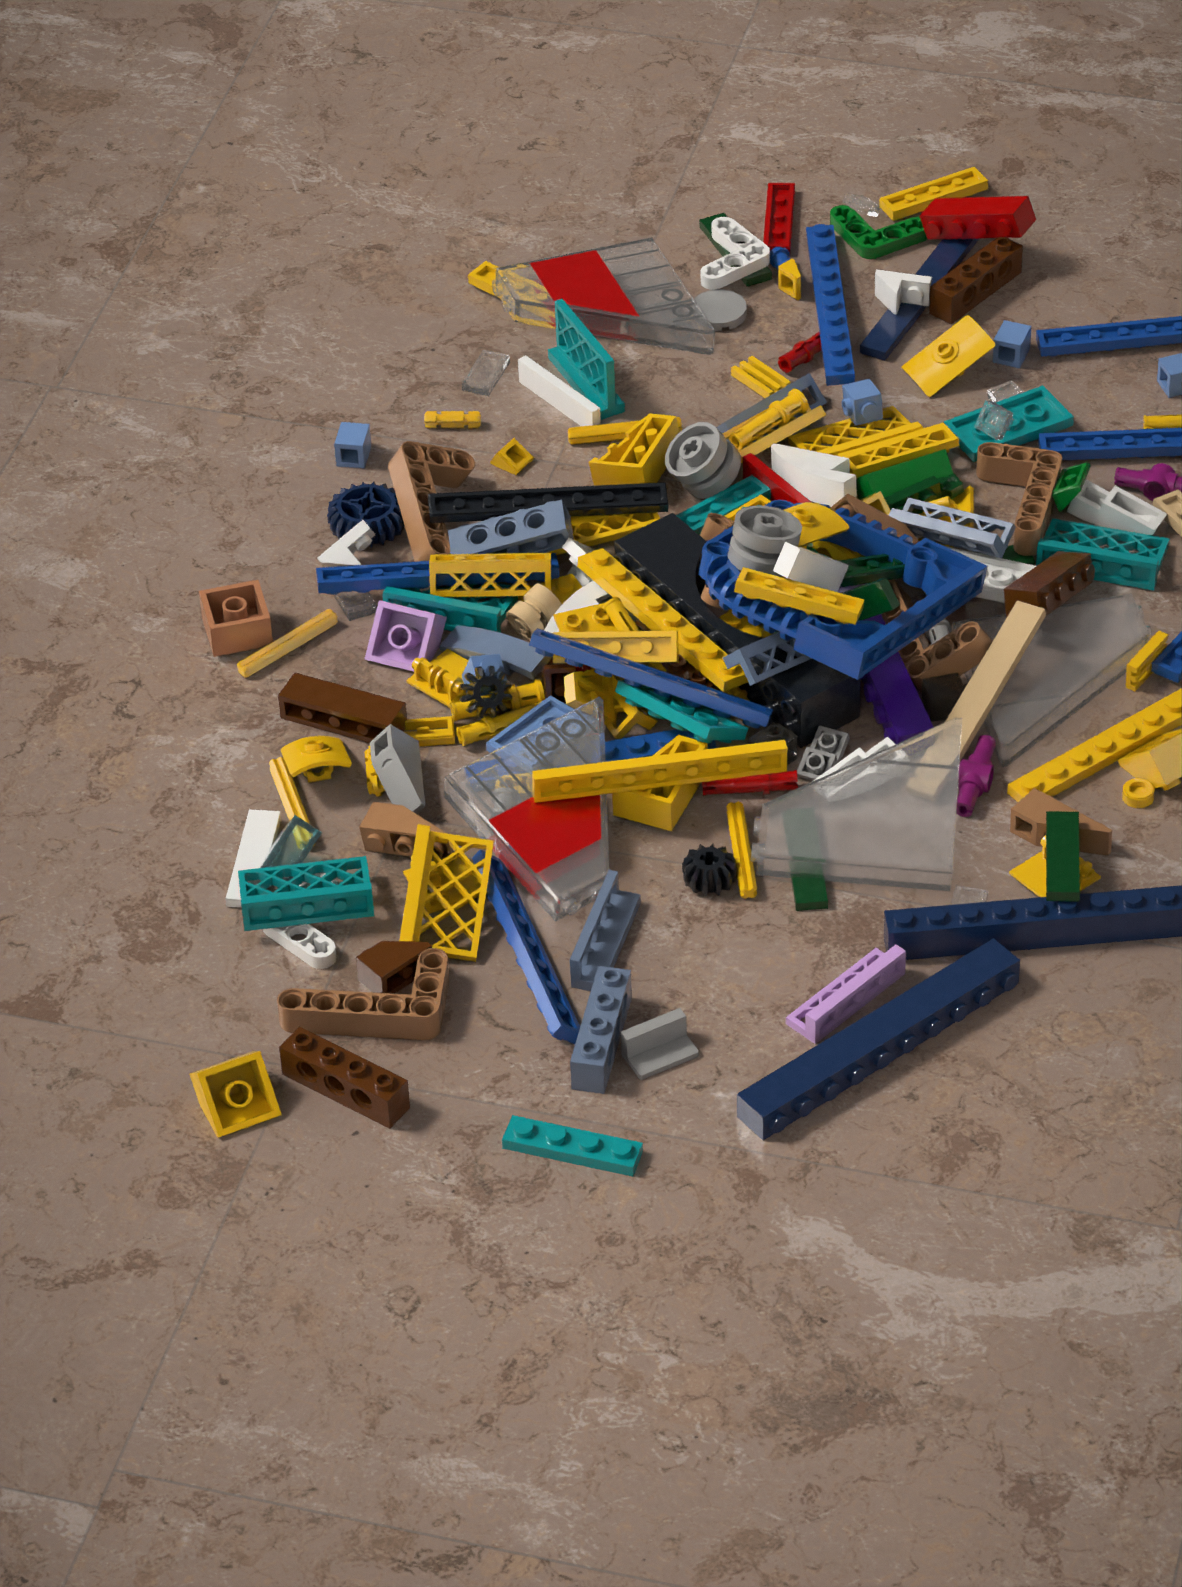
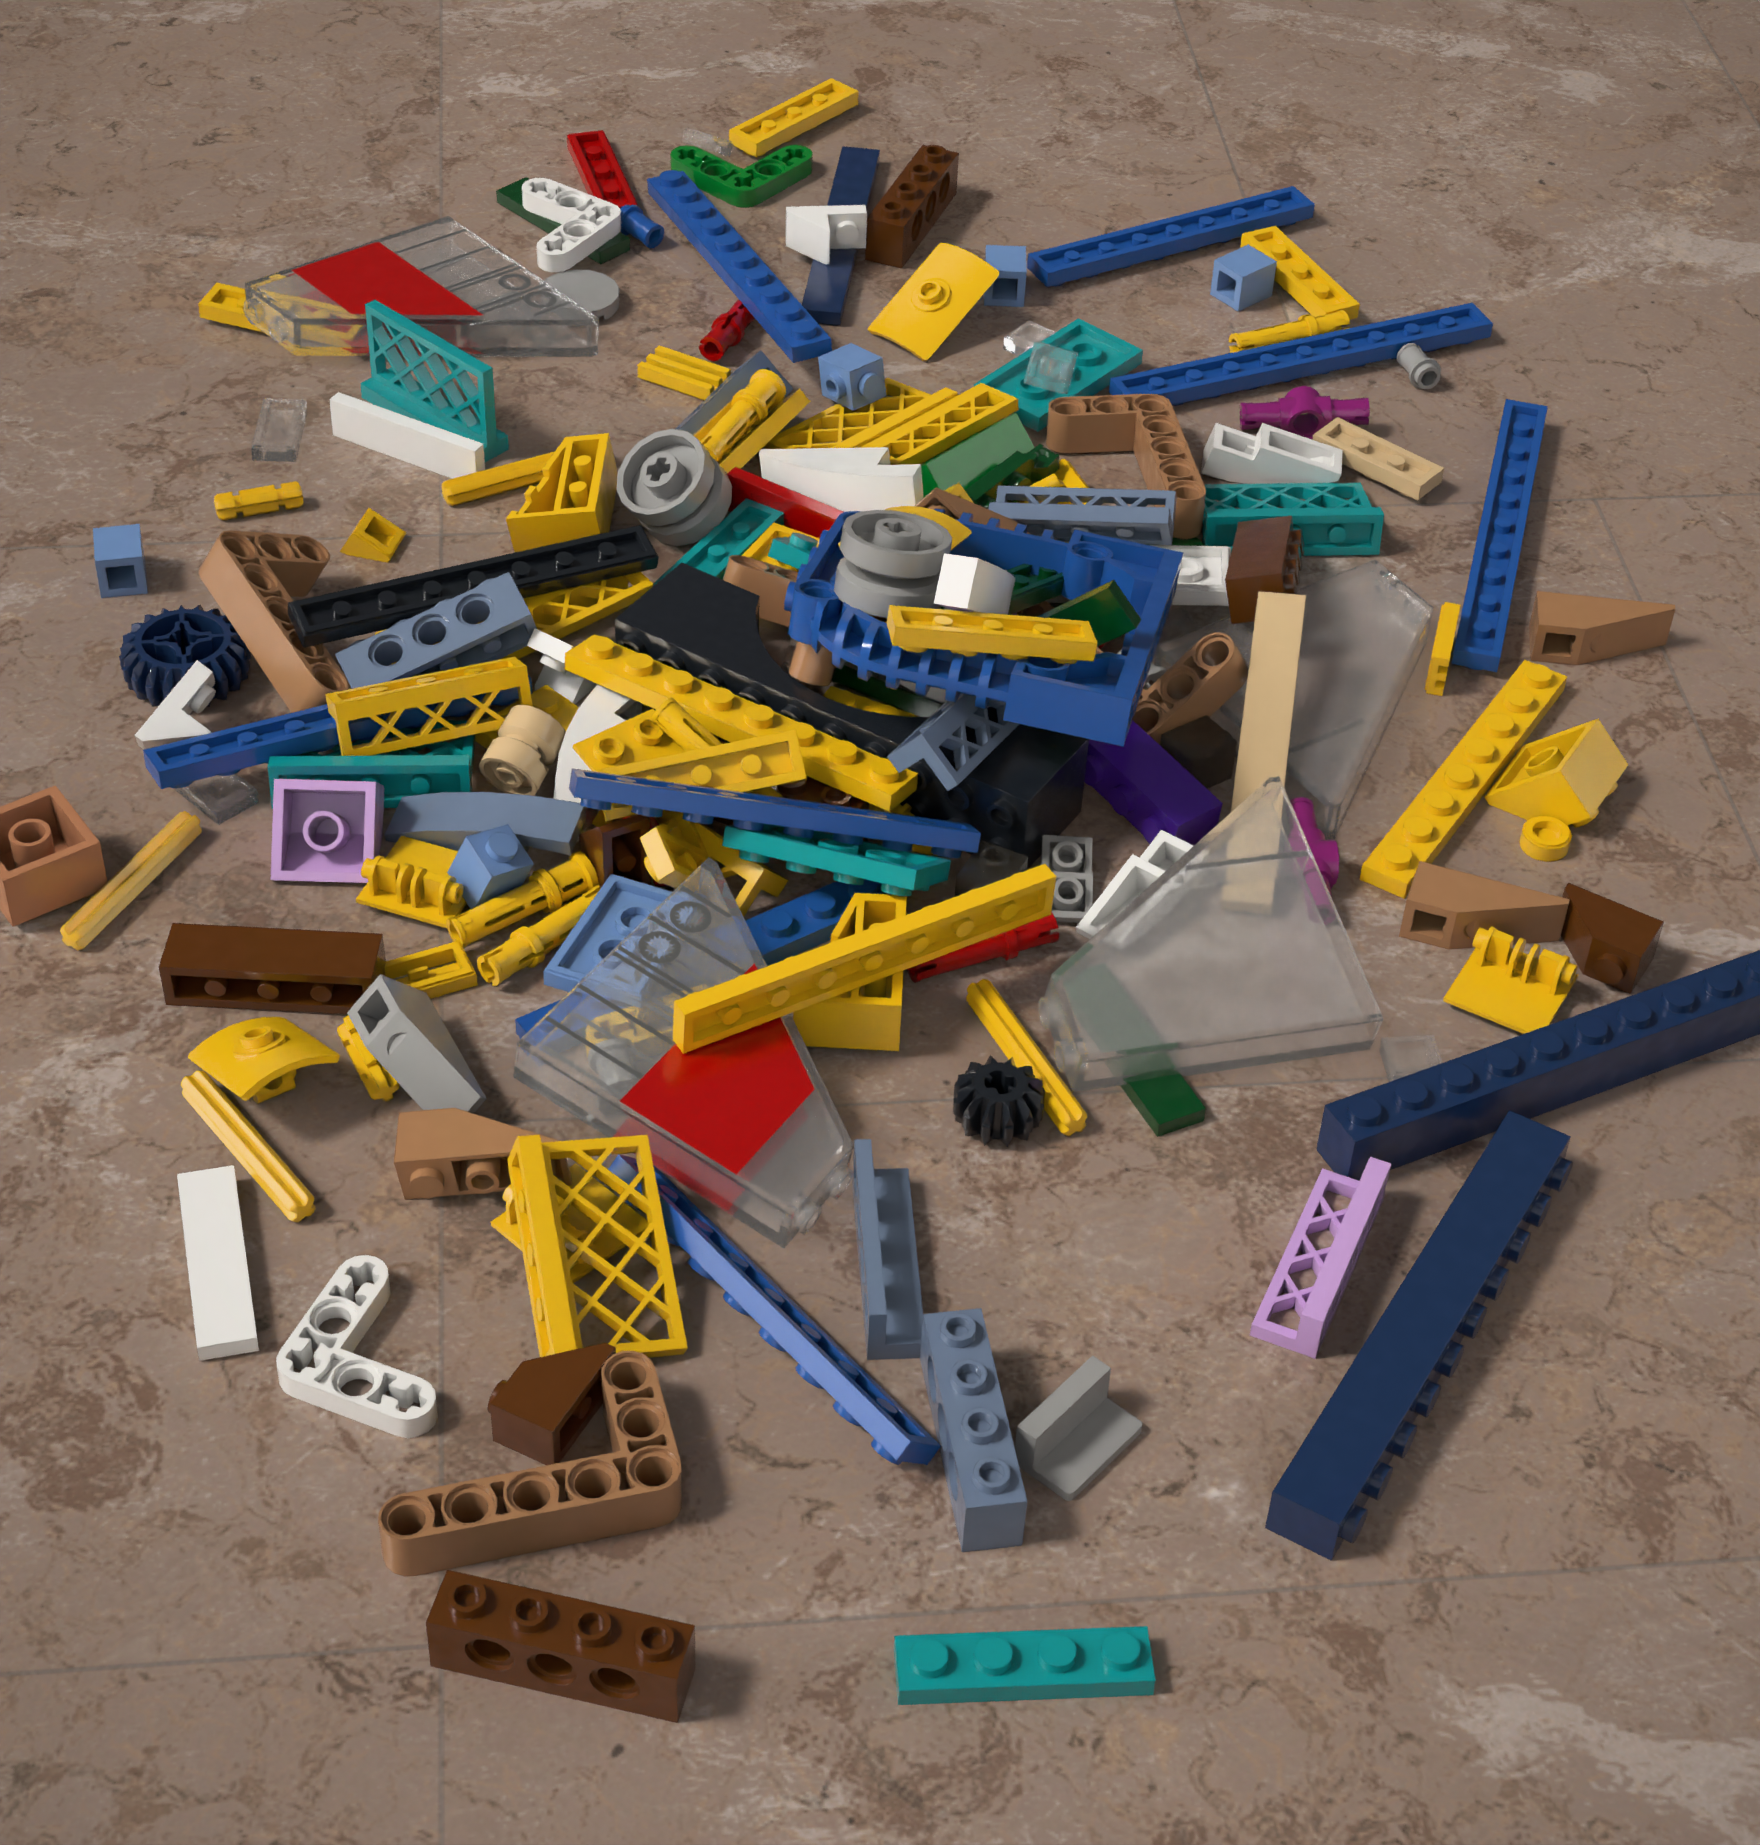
camera: 25 degrees left, 0 degrees up
(236, 1093) = (367, 1735): yellow slope -> none
(292, 844) = (284, 1231): clear light blue slope -> none
(299, 906) = (351, 1326): teal fence -> none
(497, 691) = (529, 885): black gear -> none
(789, 279) = (662, 243): yellow slope -> none
(978, 217) = (883, 127): red brick -> none
(1062, 856) = (1541, 956): dark green tile -> none
(1069, 484) = (1203, 432): green slope -> none
(1133, 860) = (1609, 938): none -> reddish brown slope

